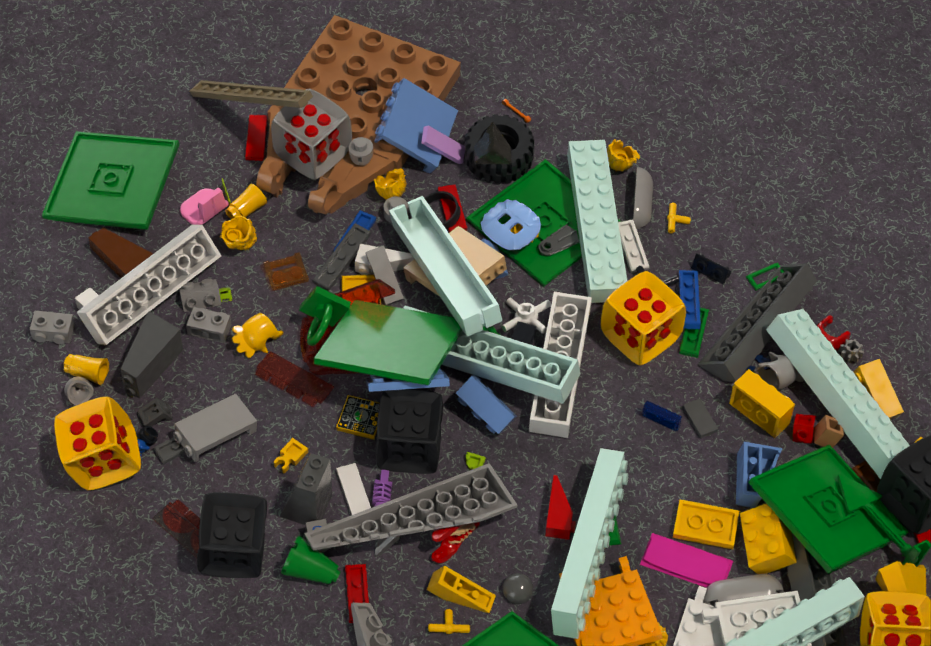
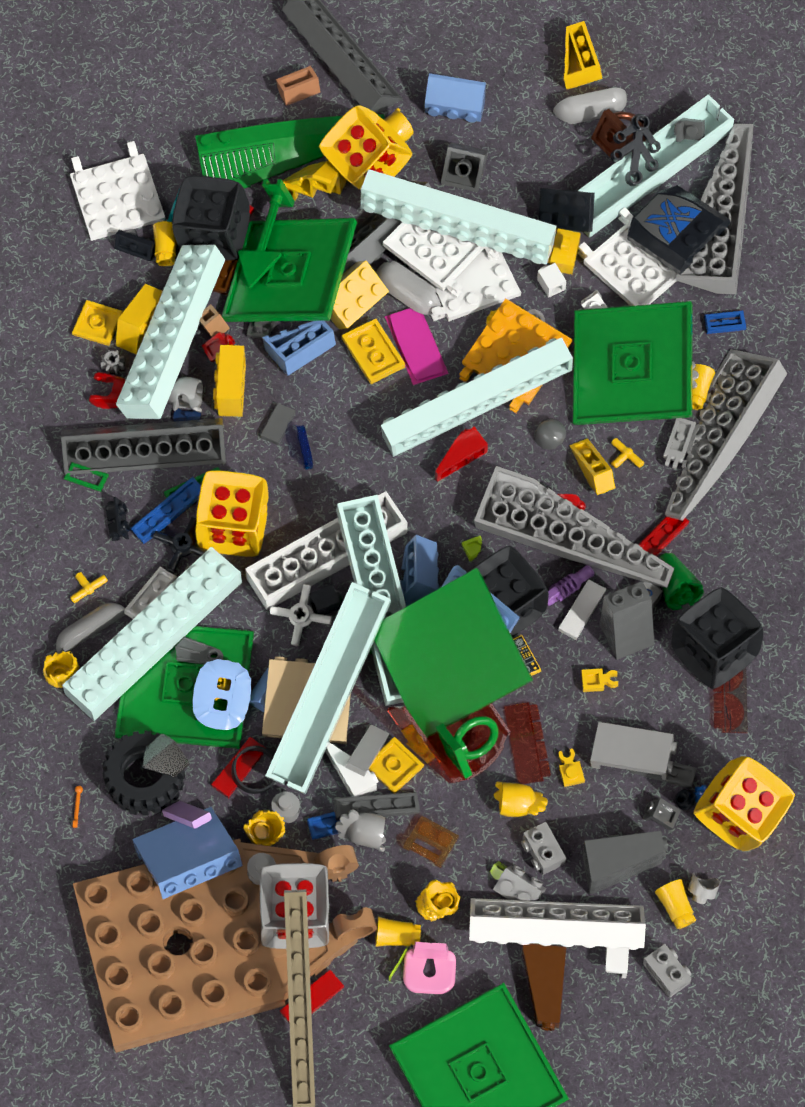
camera: 130 degrees left, 10 degrees up
(244, 387) = (571, 771): none -> yellow plate
(330, 231) = (362, 829): none -> light grey piece
(901, 369) = (97, 323): none -> yellow tile

